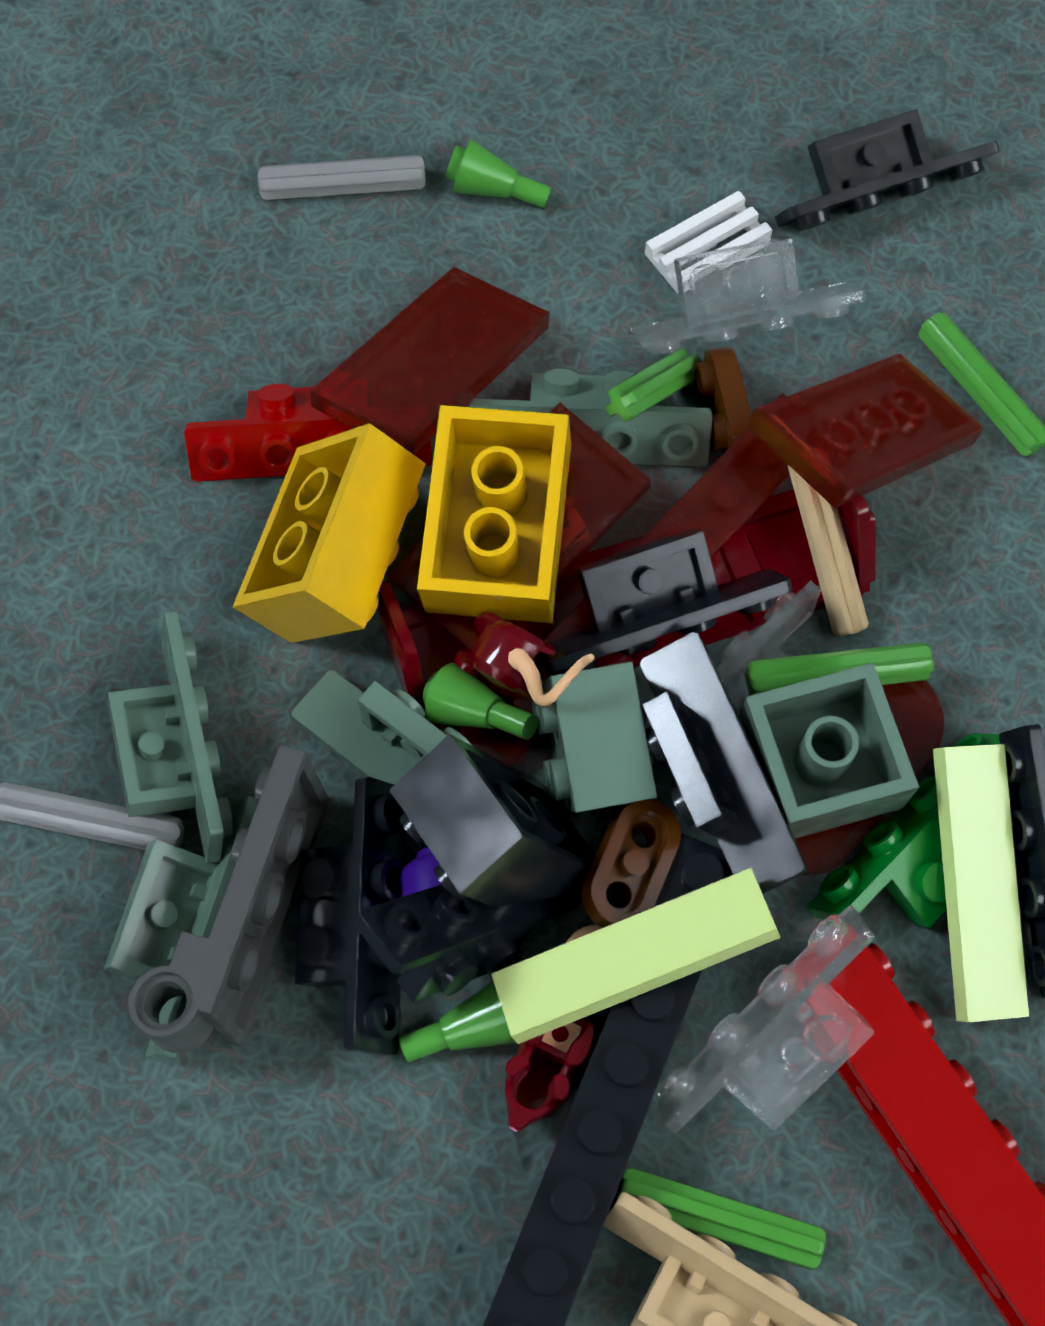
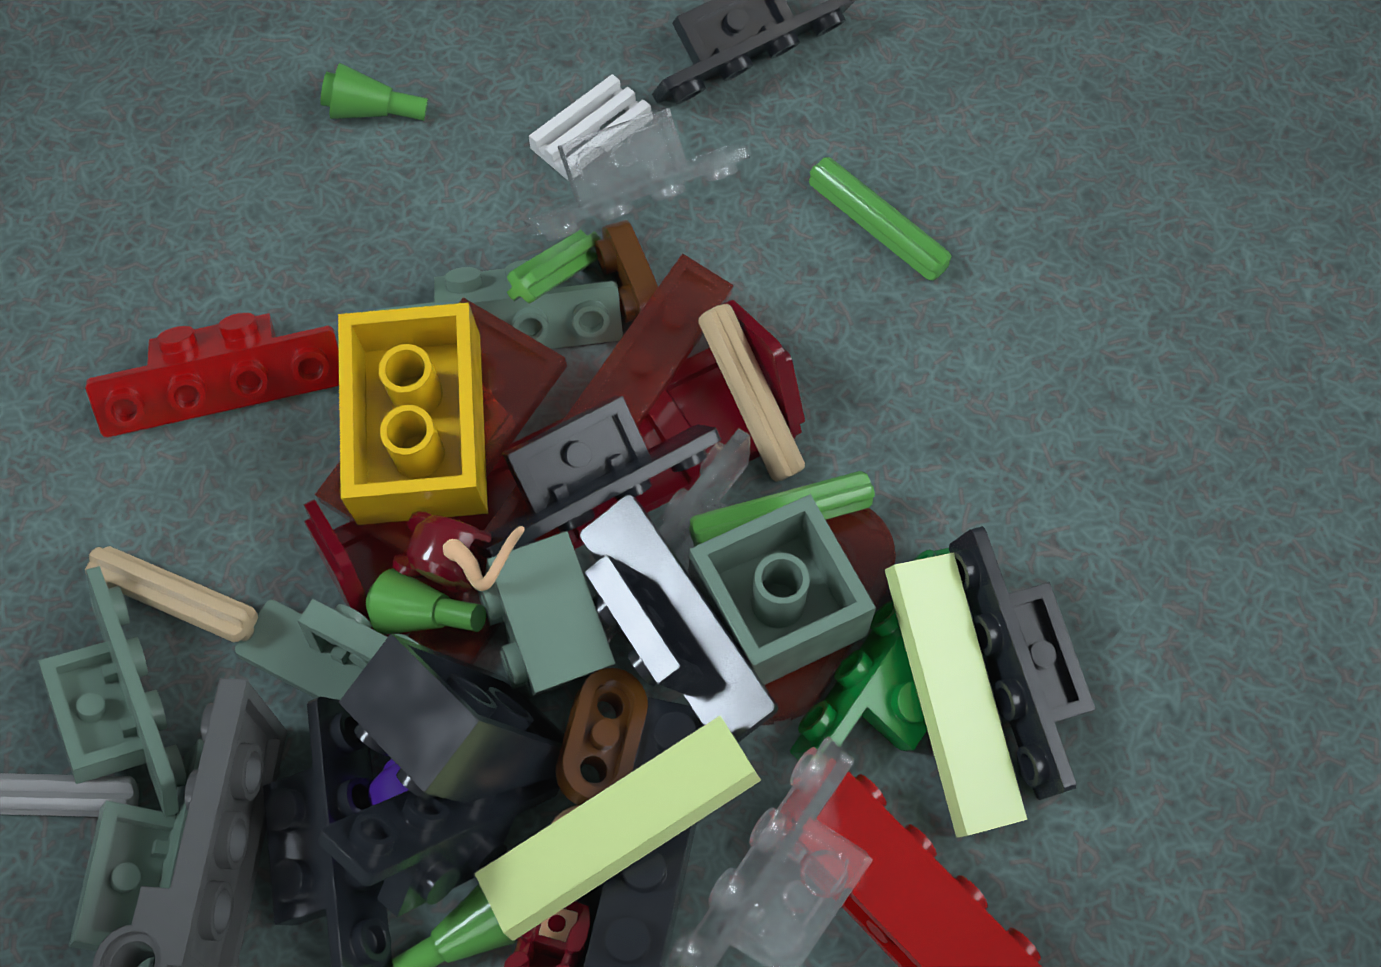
camera: 10 degrees left, 5 degrees down
(242, 649) = (175, 594): none -> tan axle
(331, 535) = (249, 465): yellow brick -> none
(341, 177) = (216, 120): light grey axle -> none
(430, 356) = (335, 265): clear red tile -> none
(864, 428) = (767, 275): clear red tile -> none

